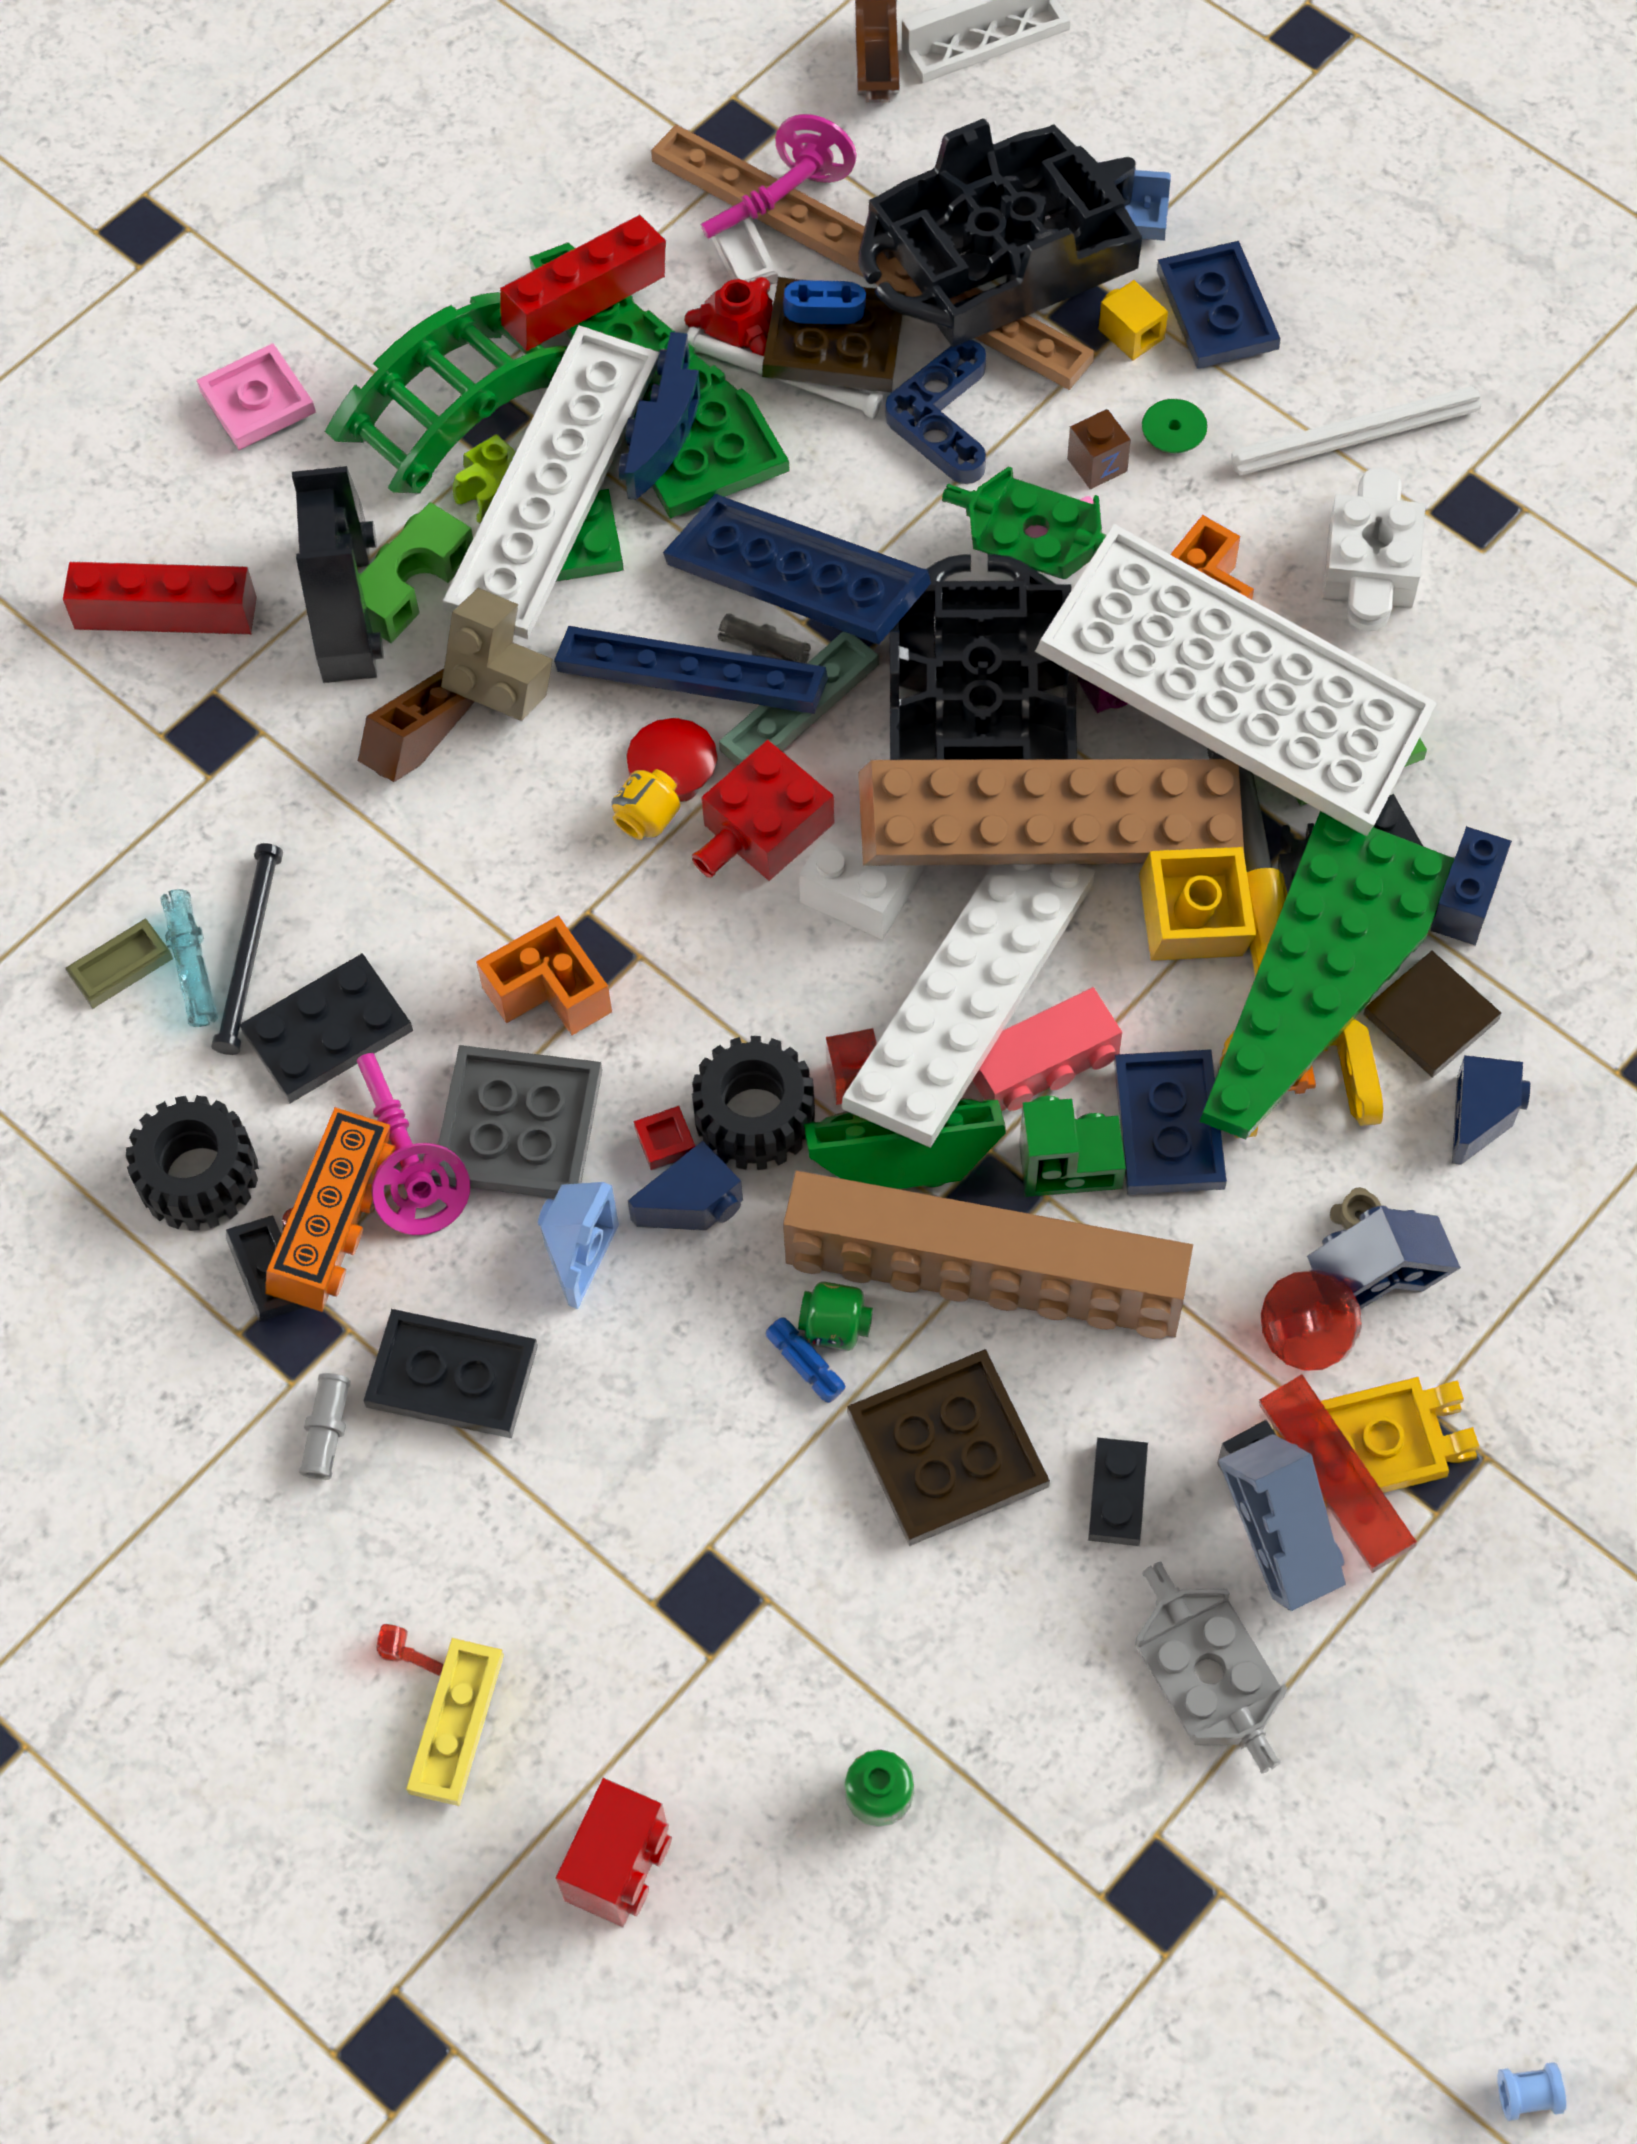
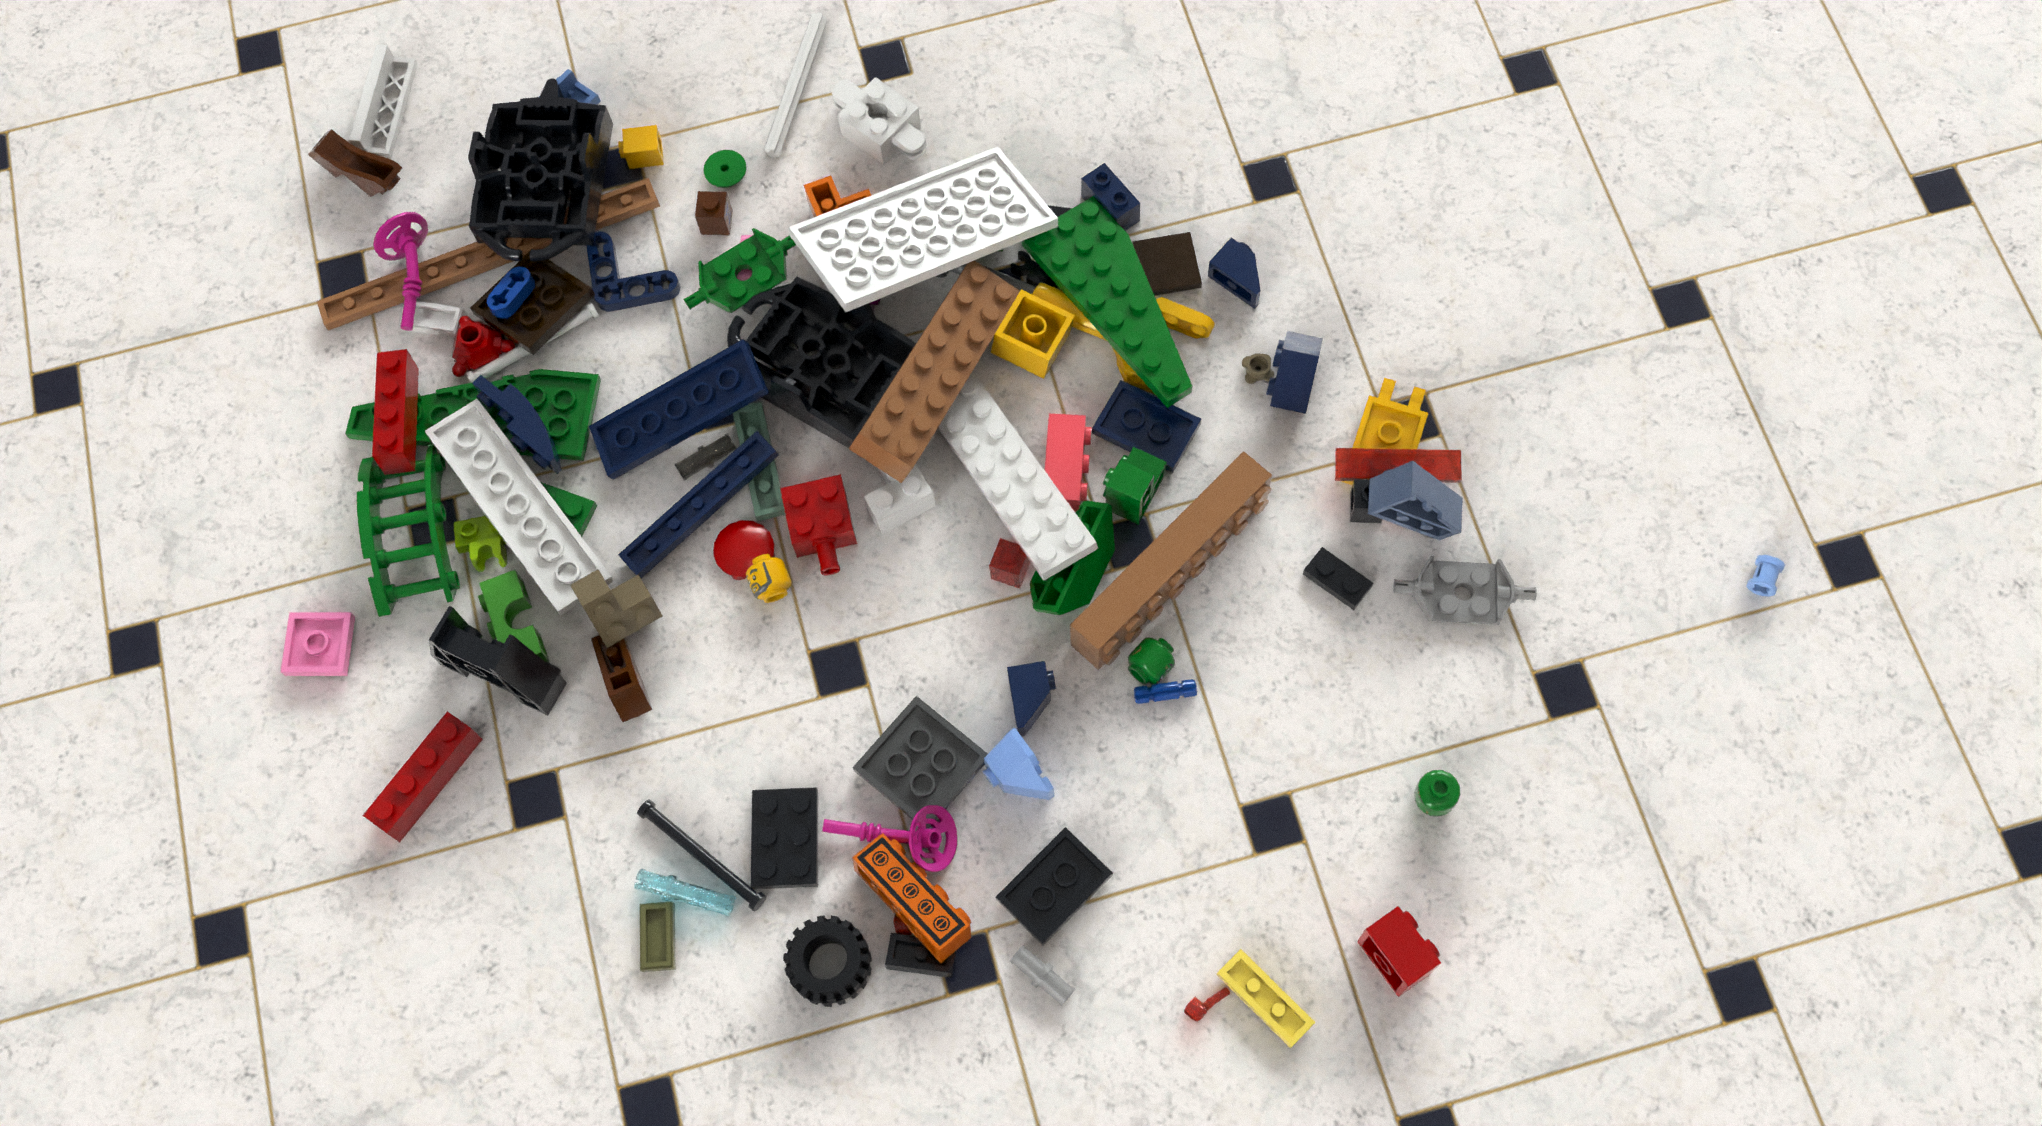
camera: 55 degrees left, 5 degrees up
(543, 968) = (840, 688): orange brick -> none
(664, 1137) = (984, 688): red plate -> none
(747, 1068) = (993, 604): black tyre -> none
(948, 1447) = (1263, 647): dark brown plate -> none
(1218, 304) = (664, 100): dark blue plate -> none
(1310, 1320) = (1307, 425): clear red tile -> none

